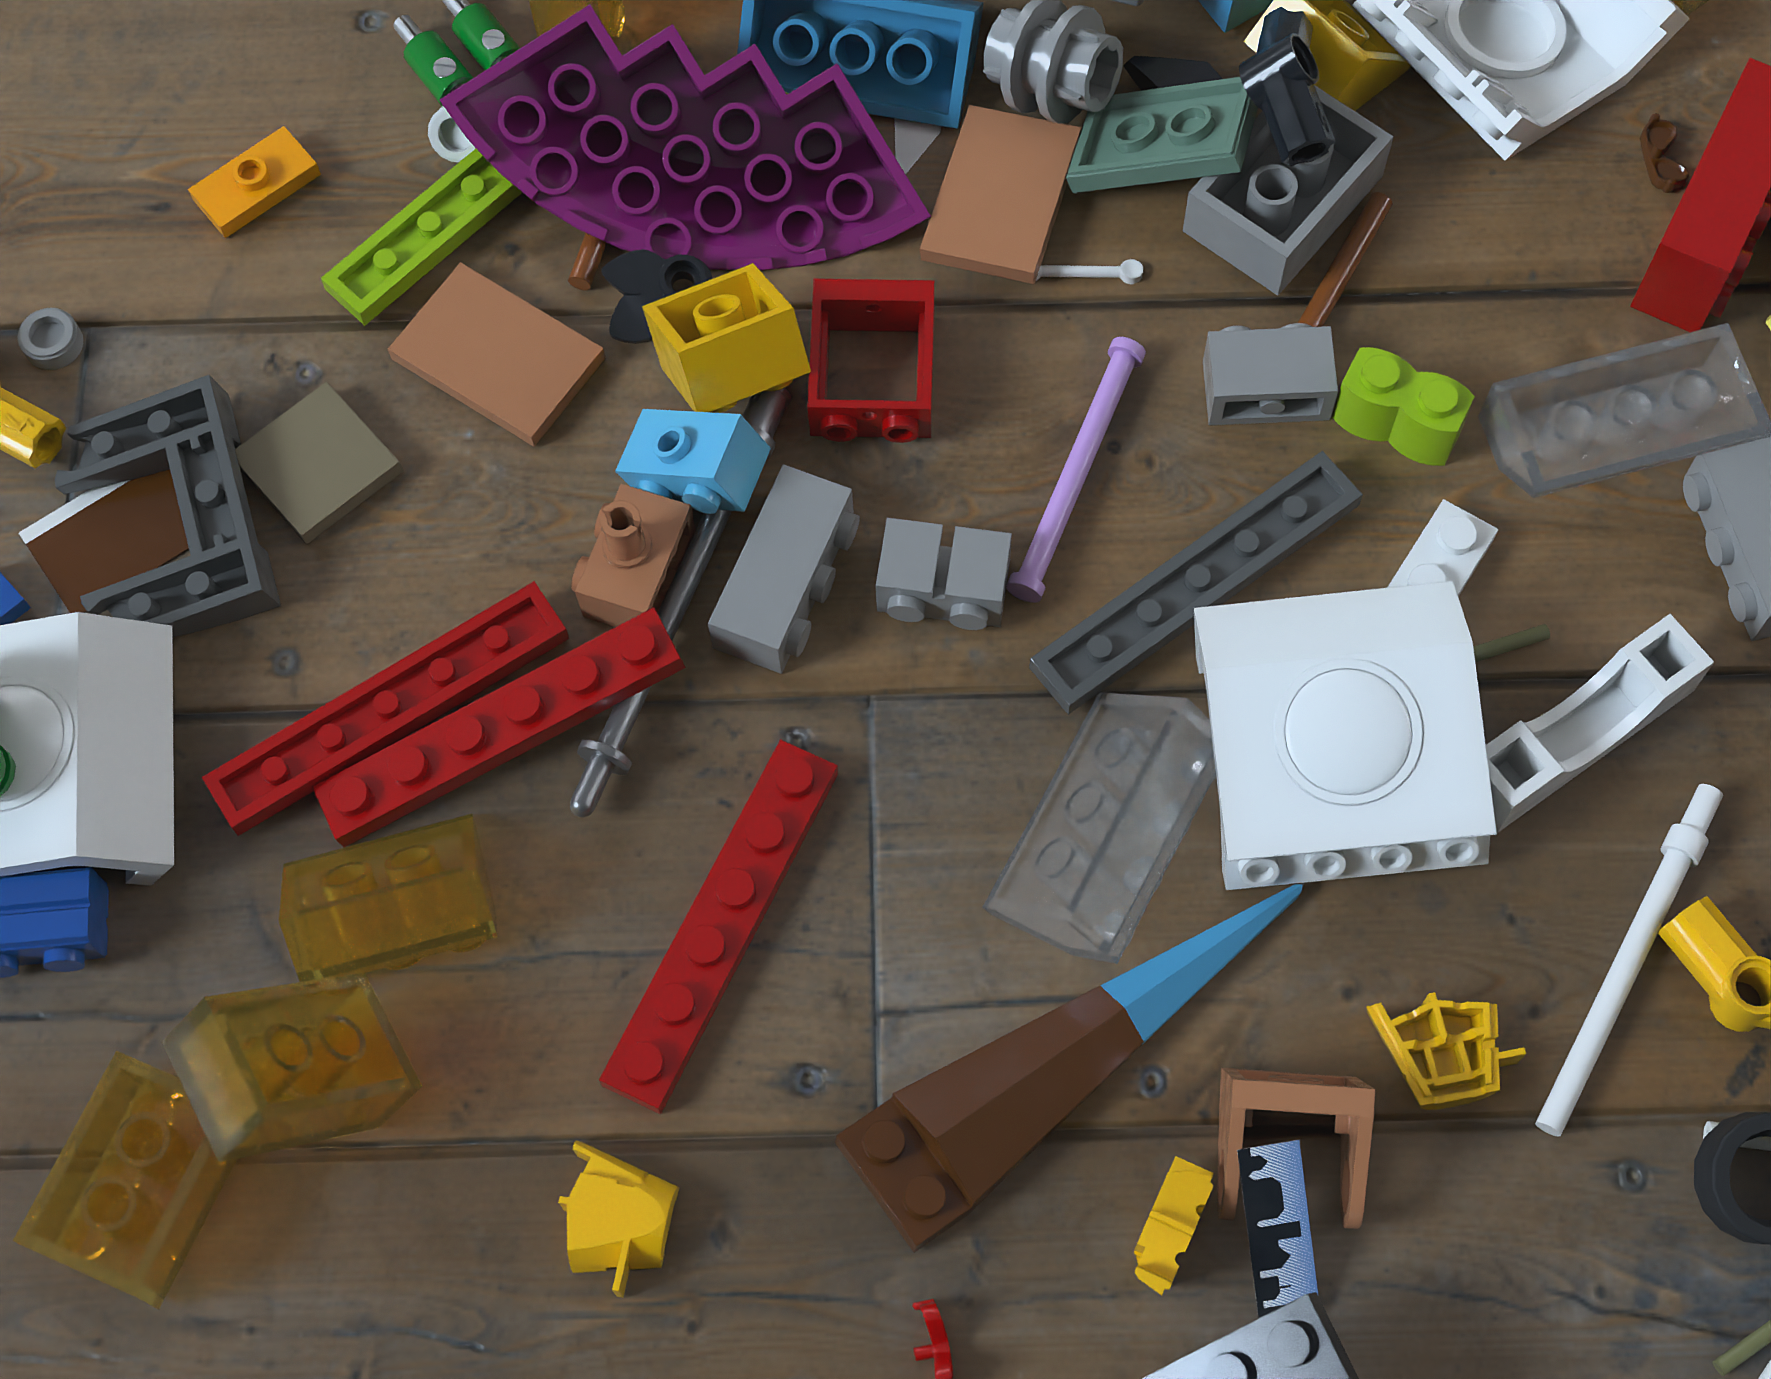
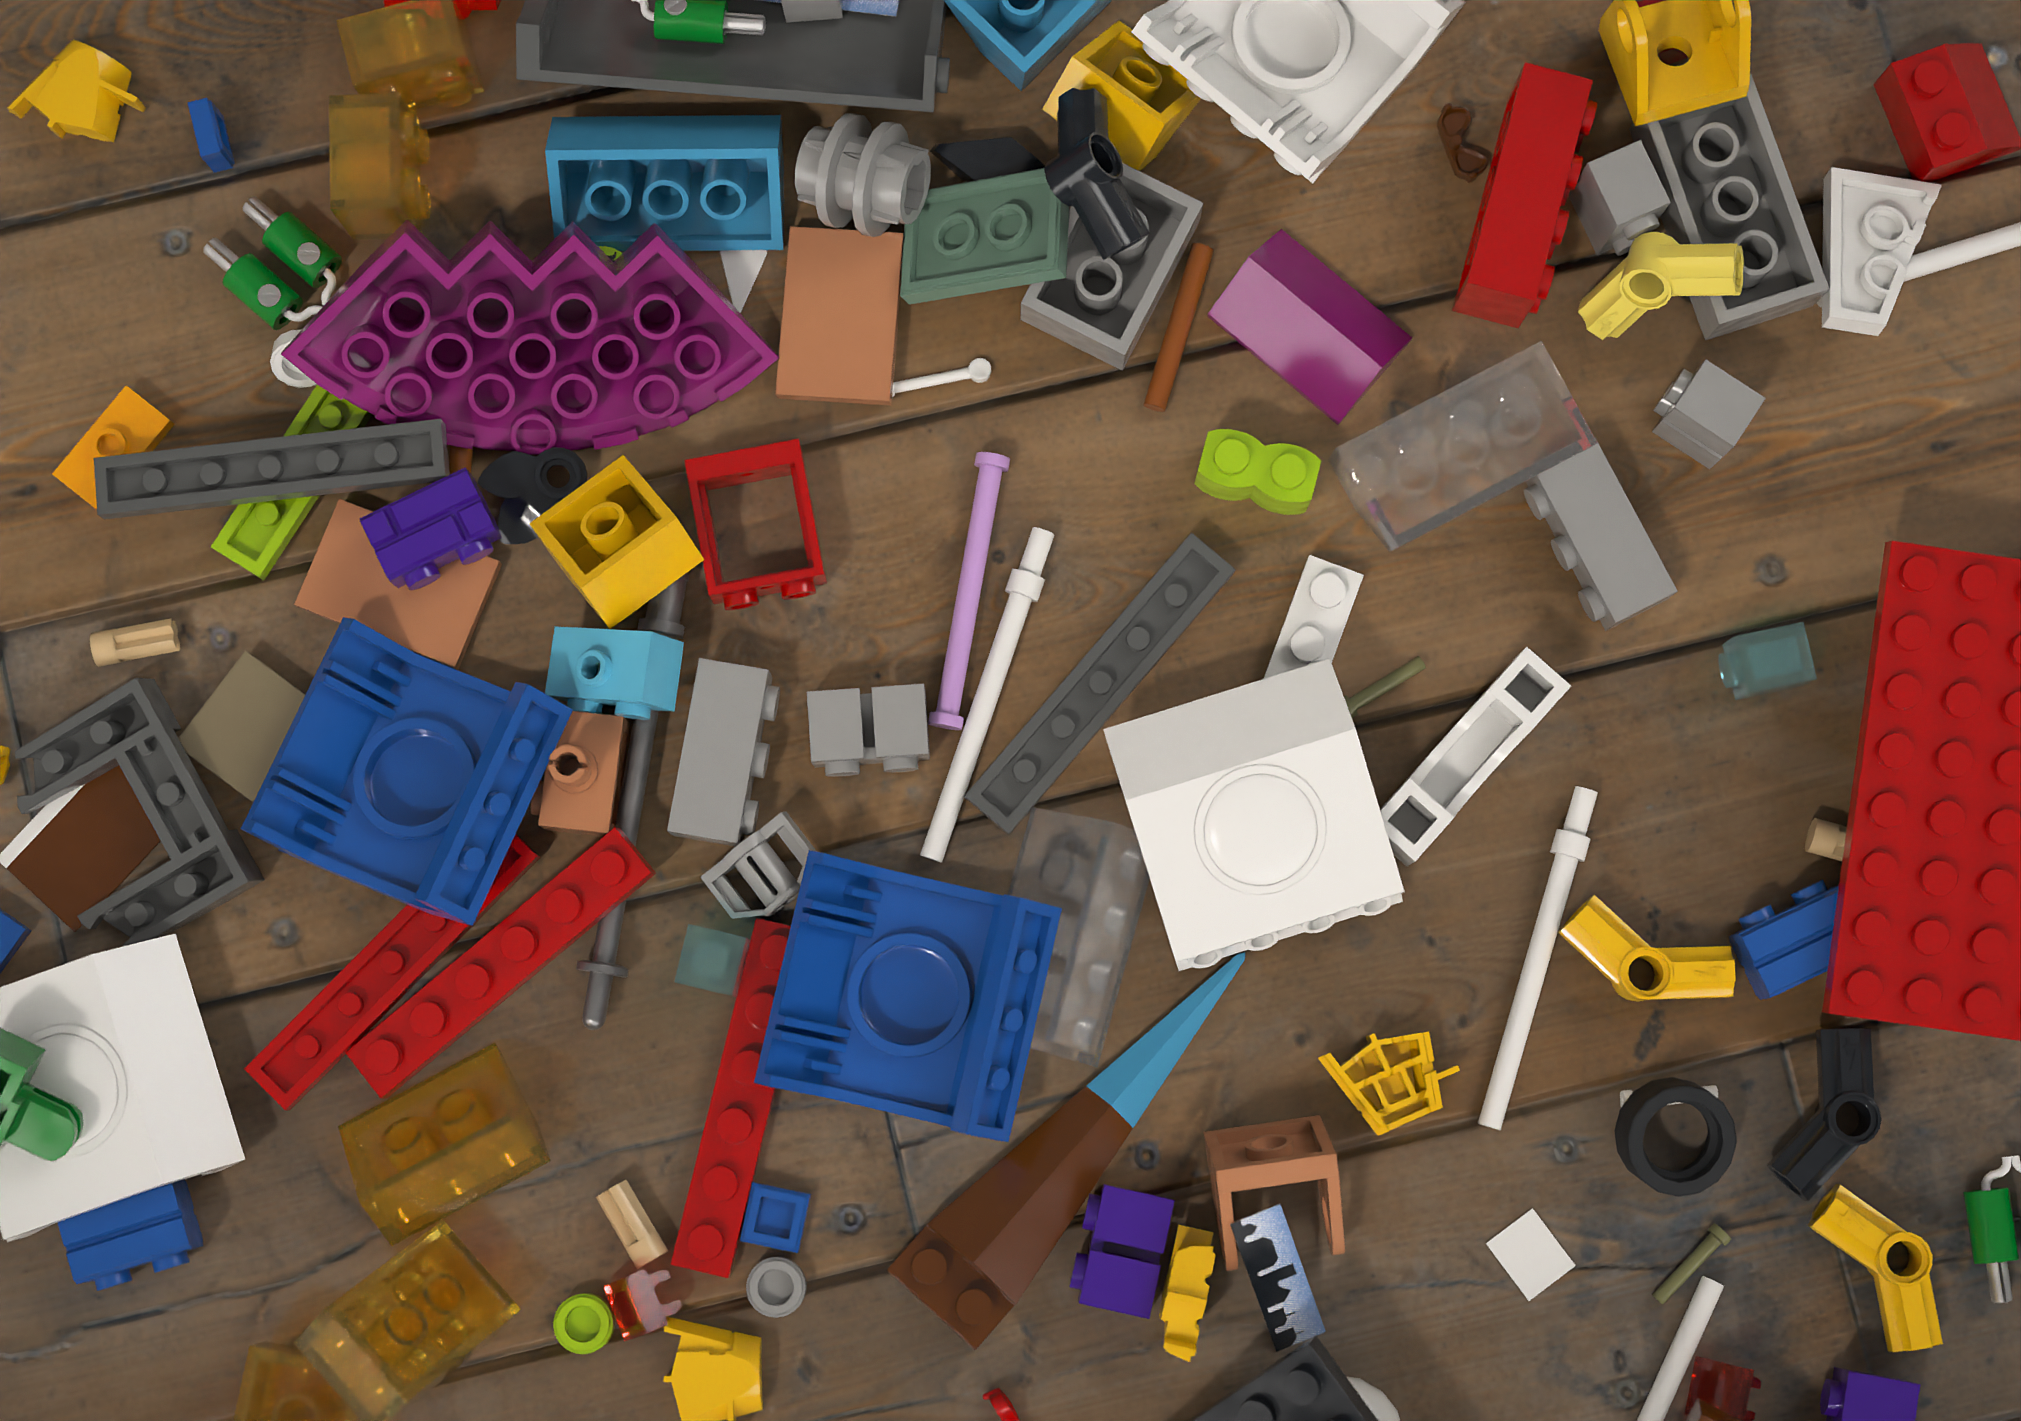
camera: 15 degrees left, 15 degrees up
(219, 355) = (134, 642): none -> tan piece
(401, 212) = (271, 469): none -> dark grey plate
(448, 516) = (406, 773): none -> blue panel
(488, 1127) = (584, 1323): none -> lime tile
(543, 297) = (432, 530): none -> dark purple brick
(551, 1113) = (637, 1305): none -> clear red tile
(568, 1030) = (632, 1224): none -> tan piece
(709, 1133) = (776, 1286): none -> light grey tile
(722, 768) = (712, 960): none -> clear light blue brick
(726, 1057) = (775, 1217): none -> blue tile
(781, 675) = (761, 869): none -> light grey piece
(924, 847) = (908, 995): none -> blue panel
(1107, 1172) = (1123, 1250): none -> dark purple piece
(1133, 479) = (1024, 587): none -> white bar
(1269, 374) = (1129, 460): light grey brick -> none
(1476, 289) = (1308, 325): none -> magenta slope
(1575, 1285) = (1530, 1254): none -> white sticker

